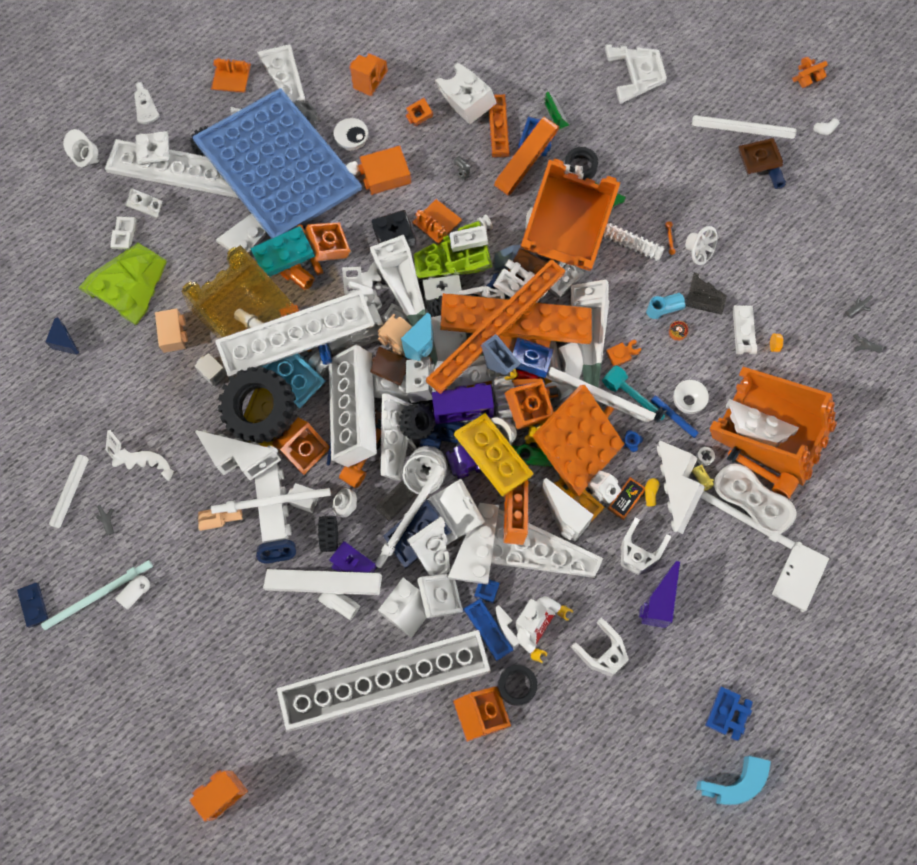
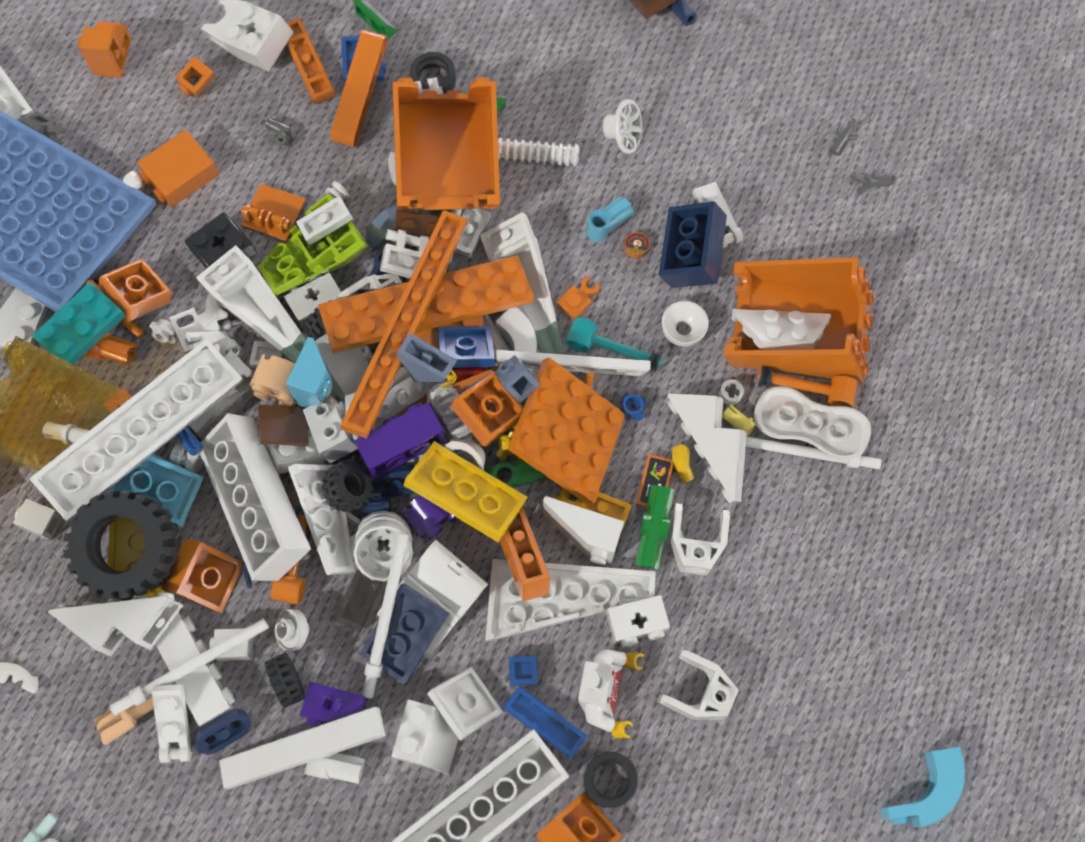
camera: 25 degrees left, 0 degrees up
(246, 532) = (172, 722): none -> white plate
(335, 275) = (163, 331): none -> white plate
(351, 134) = (113, 136): white tile -> none
(431, 548) = (431, 646): white wing -> none
(476, 551) = (490, 626): white wing -> none
(503, 622) = (560, 704): white slope -> none
(557, 391) = (517, 378): none -> sand blue brick
(587, 582) = (622, 617): none -> white brick
(604, 487) = (622, 479): white brick -> none
(614, 528) = (655, 527): none -> green piece
(659, 607) = (750, 601): dark purple slope -> none
(668, 225) = (573, 116): orange hinge -> none
(675, 417) = (674, 356): blue bar -> none
(705, 296) = (653, 190): clear smoke wing -> none
(717, 344) = (693, 245): none -> dark blue brick
(723, 710) = (877, 707): blue plate -> none
(776, 342) = (762, 217): light orange tile -> none
(800, 581) = (908, 499): white door -> none

